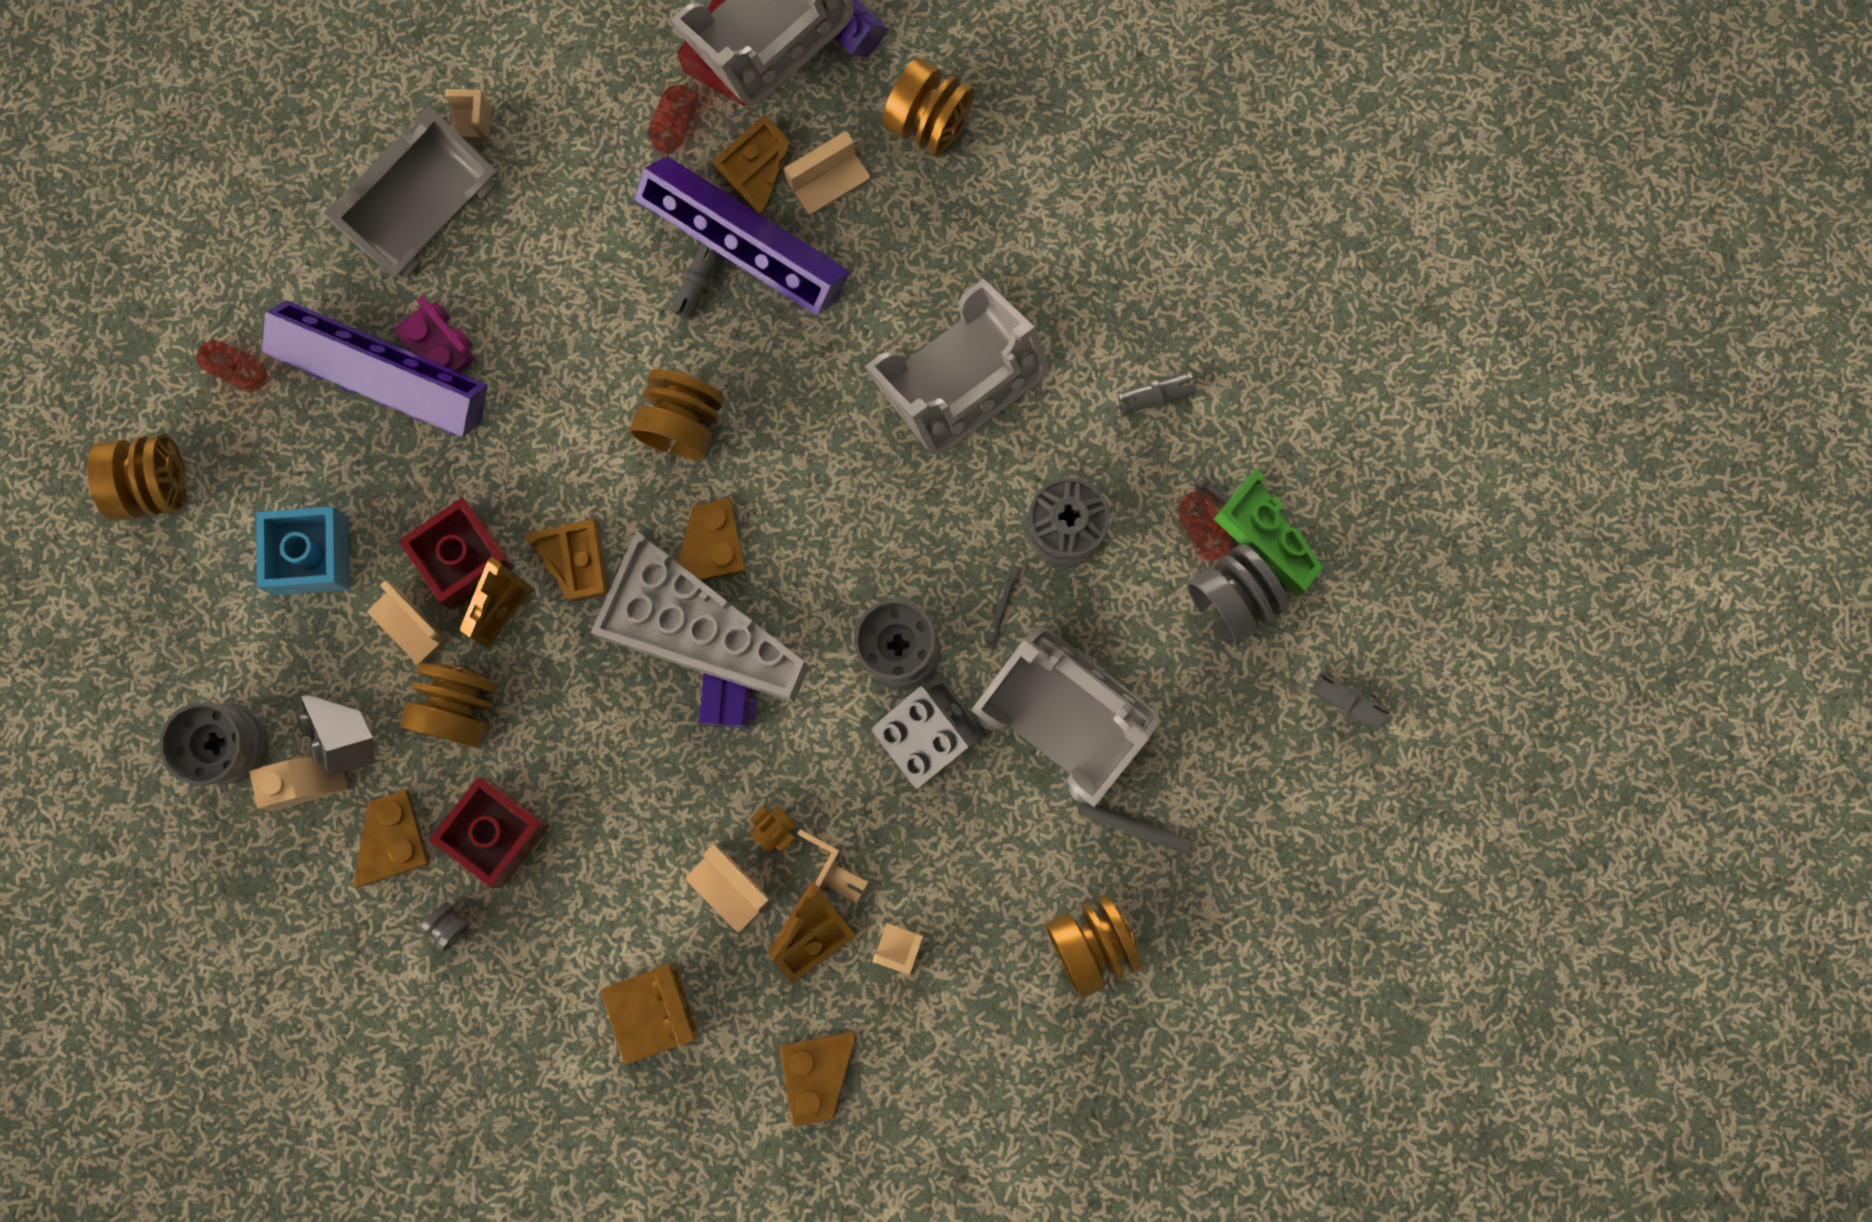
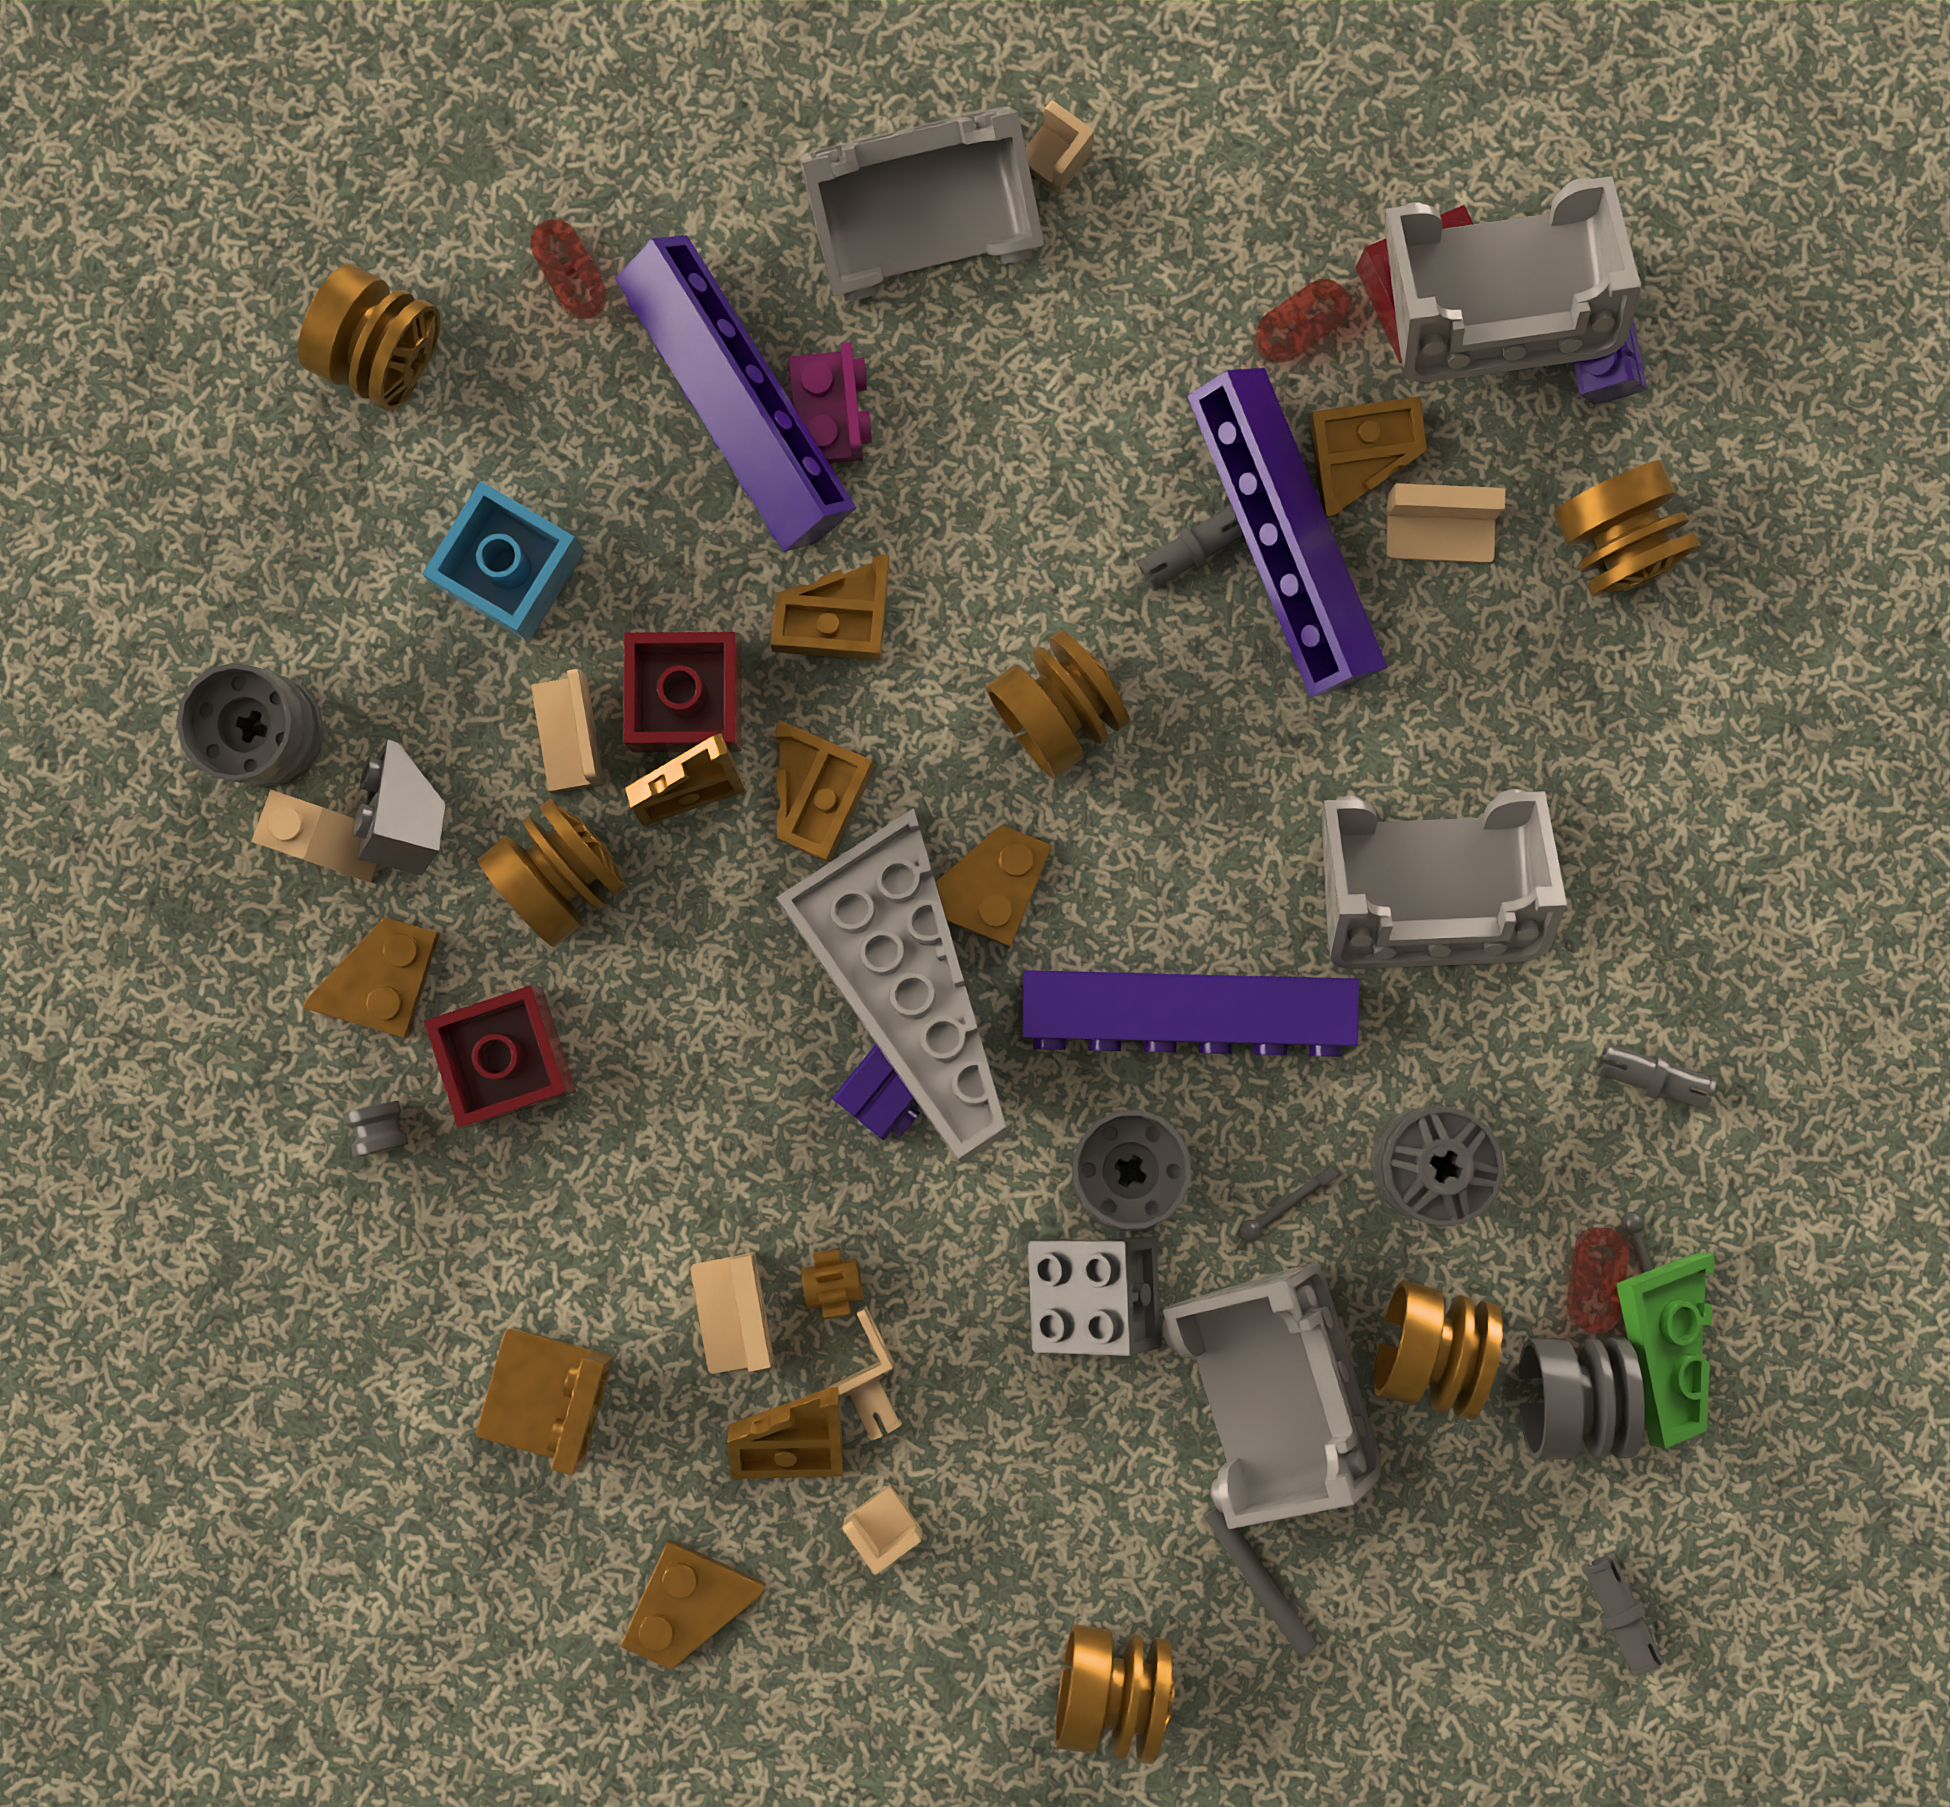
camera: 30 degrees right, 5 degrees up
(516, 454) = (835, 615): none -> pearl gold wing
(870, 534) = (1190, 1009): none -> dark purple brick
(1146, 621) = (1450, 1352): none -> pearl gold wheel

